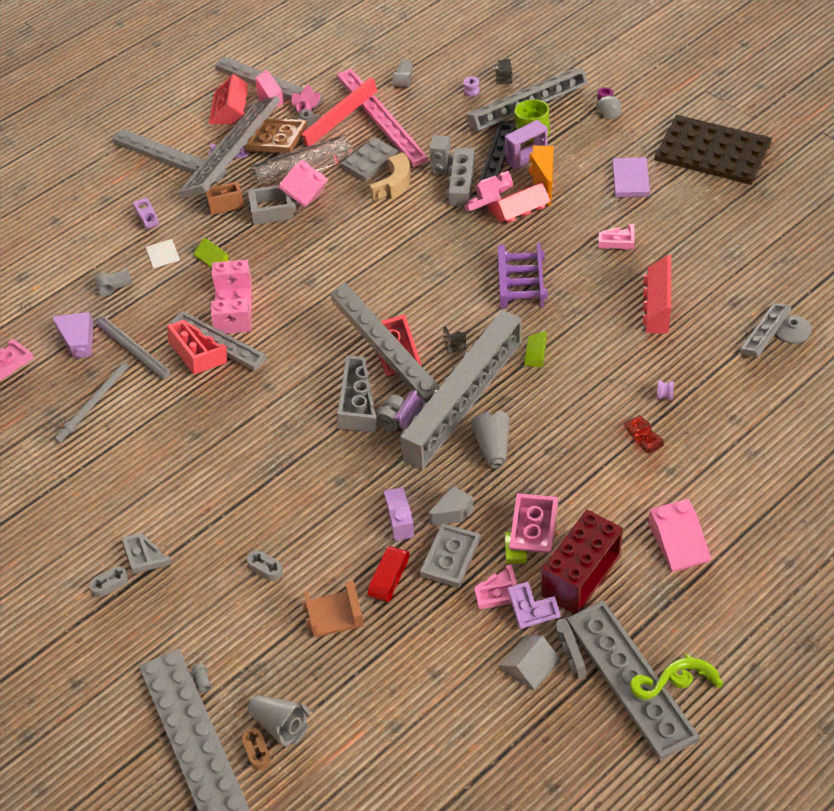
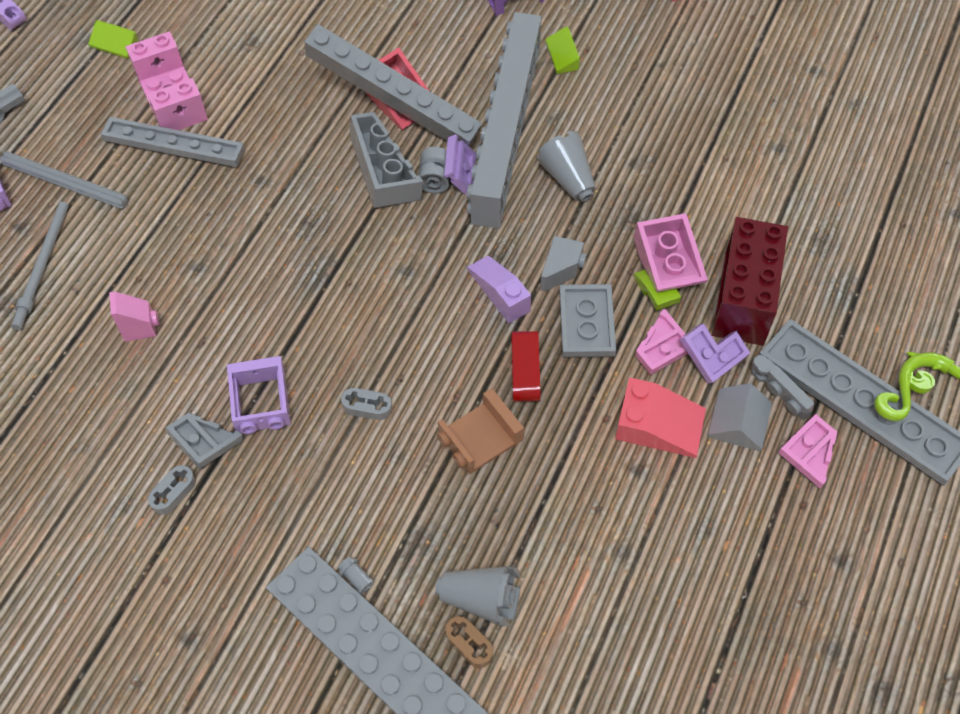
camera: 25 degrees left, 10 degrees up
(133, 455) = (133, 316): none -> bright pink slope
(162, 253) = (47, 54): white sticker -> none
(194, 348) = (148, 159): coral wedge -> none
(197, 519) = (254, 372): none -> lavender window
(454, 342) = (464, 66): clear smoke panel -> none
(466, 641) = (660, 419): none -> coral slope
(570, 700) = (811, 449): none -> bright pink wing
(642, 433) = (725, 112): clear red slope -> none
(665, 390) = (730, 58): lavender wheel -> none
(679, 535) = (830, 217): bright pink slope -> none

